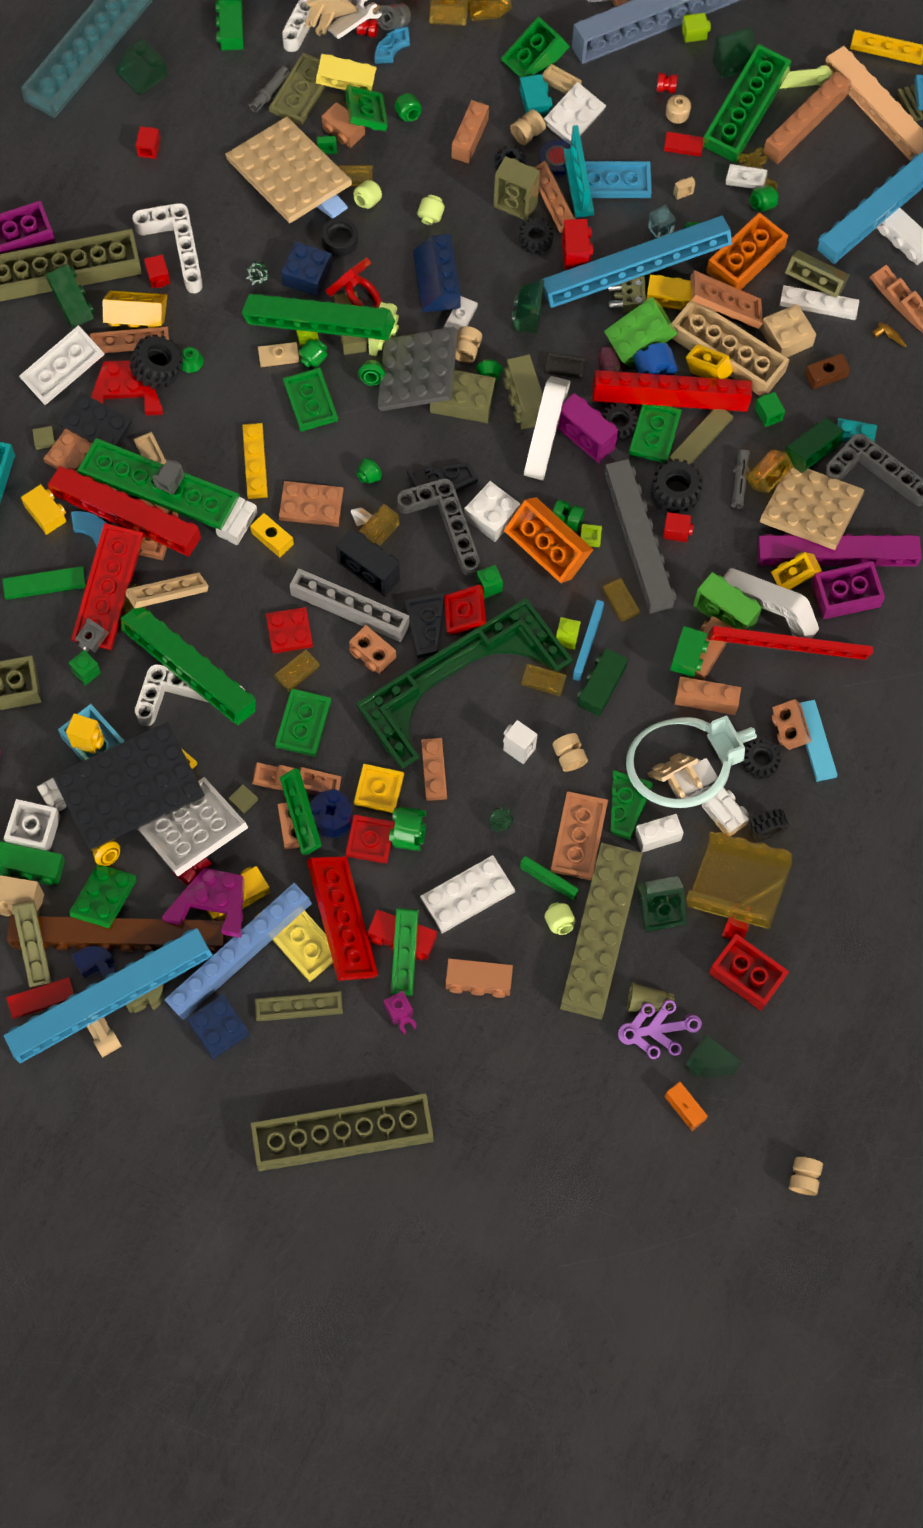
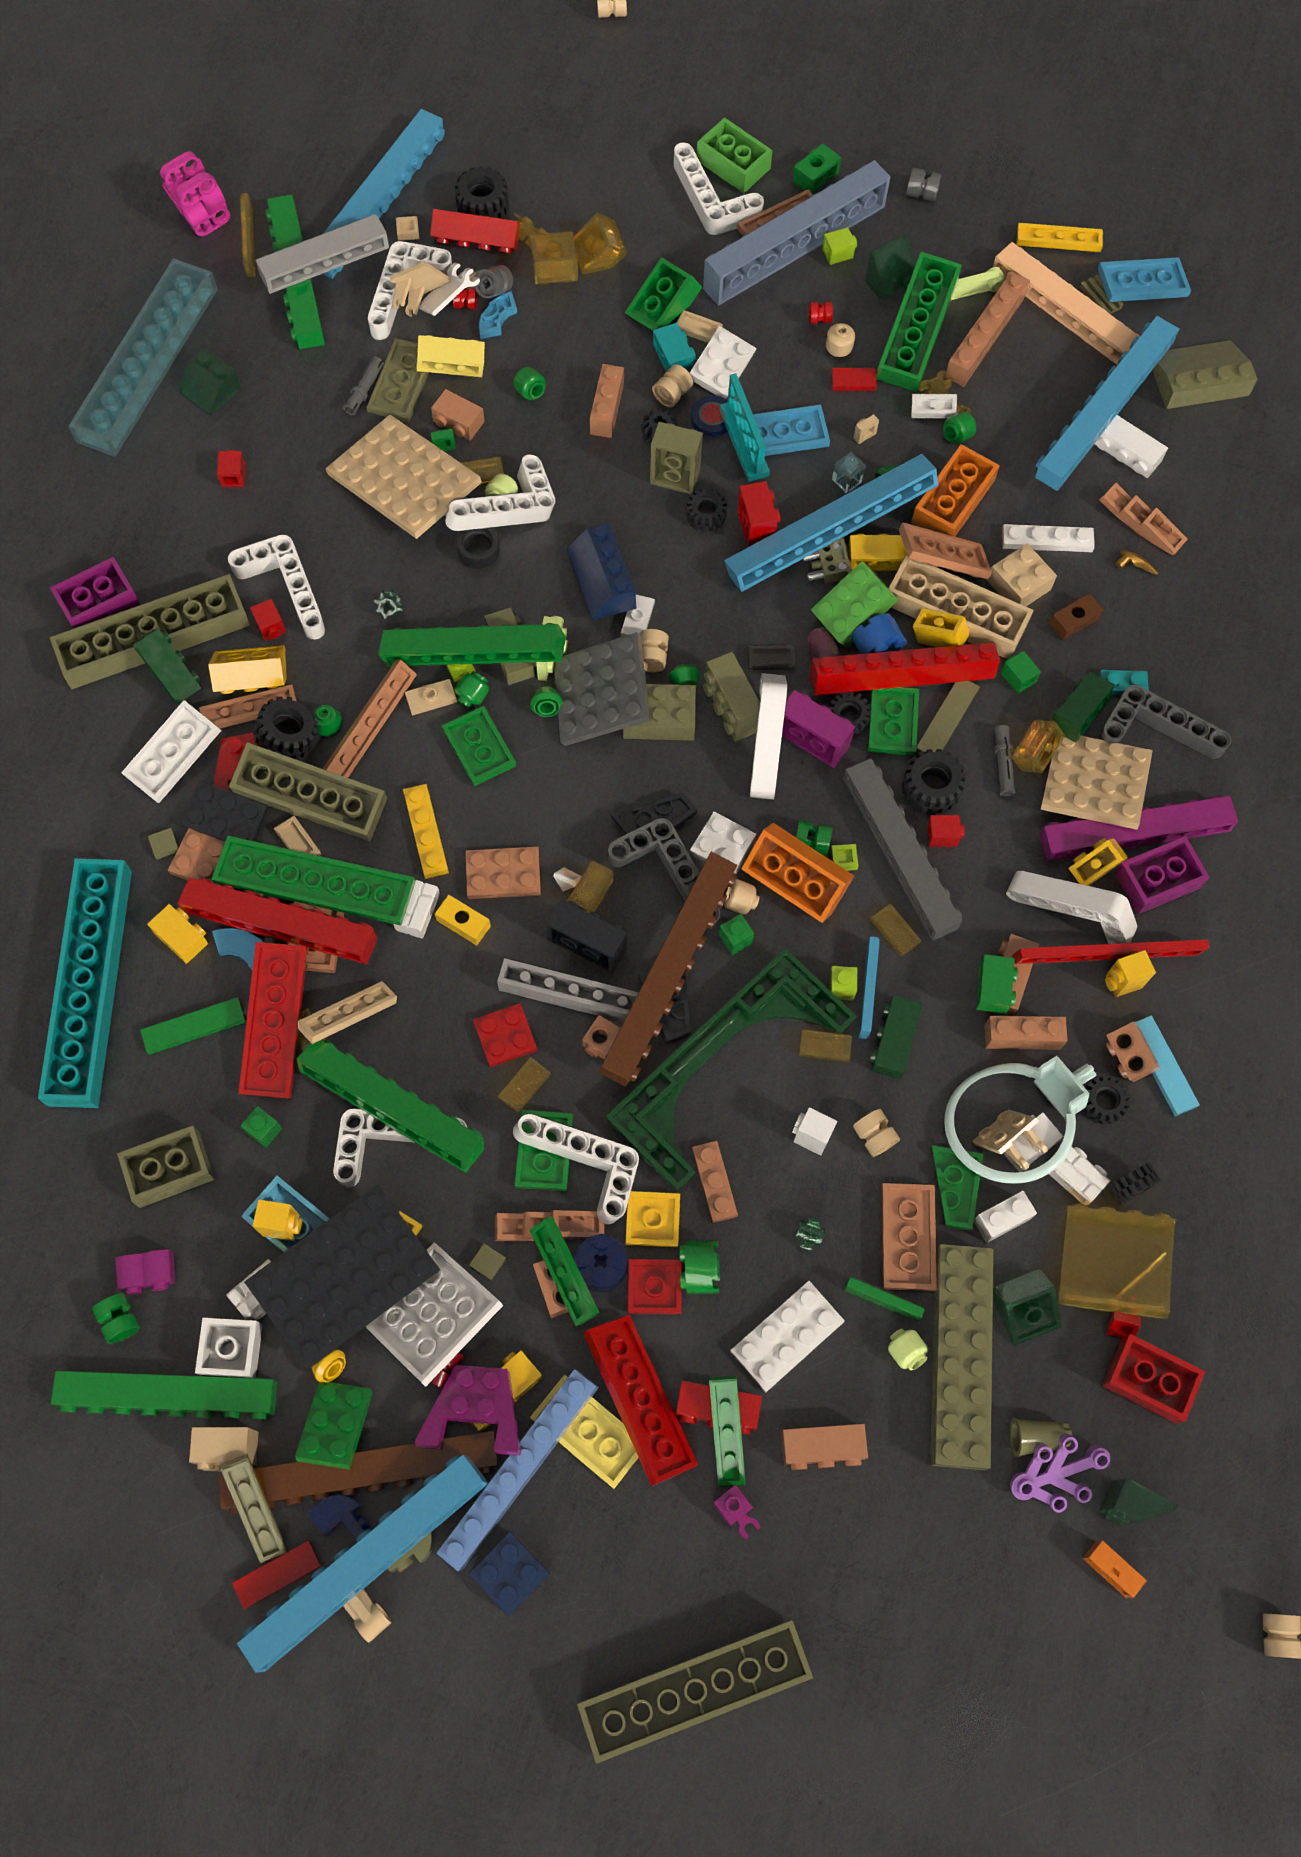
camera: 10 degrees left, 0 degrees up
(98, 636) = (271, 1083): dark grey brick -> none
(166, 414) = (308, 792): none -> olive brick
(169, 476) = (326, 870): dark grey brick -> none
(224, 367) = (370, 719): none -> nougat plate
(298, 1006) = (606, 1524): olive tile -> none
(306, 269) = (446, 589): dark blue brick -> none
(334, 730) = (587, 1156): none -> white beam
(351, 279) = (503, 594): red tile -> none
(366, 108) = (481, 391): green plate -> none
(368, 471) = (565, 822): green cone -> none
(370, 210) = (493, 511): none -> white beam
(427, 595) = (666, 972): none -> reddish brown brick
(431, 209) = (579, 498): yellowish green head -> none
(464, 609) = (715, 975): red plate -> none
(498, 552) = (741, 897): none -> tan head
(528, 307) = (716, 595): clear green slope -> none
(553, 196) = (720, 463): nougat plate -> none
(726, 603) = (1026, 916): bright green brick -> none
(802, 663) = (1130, 974): none -> yellow brick
(817, 273) = (1040, 505): olive brick -> none

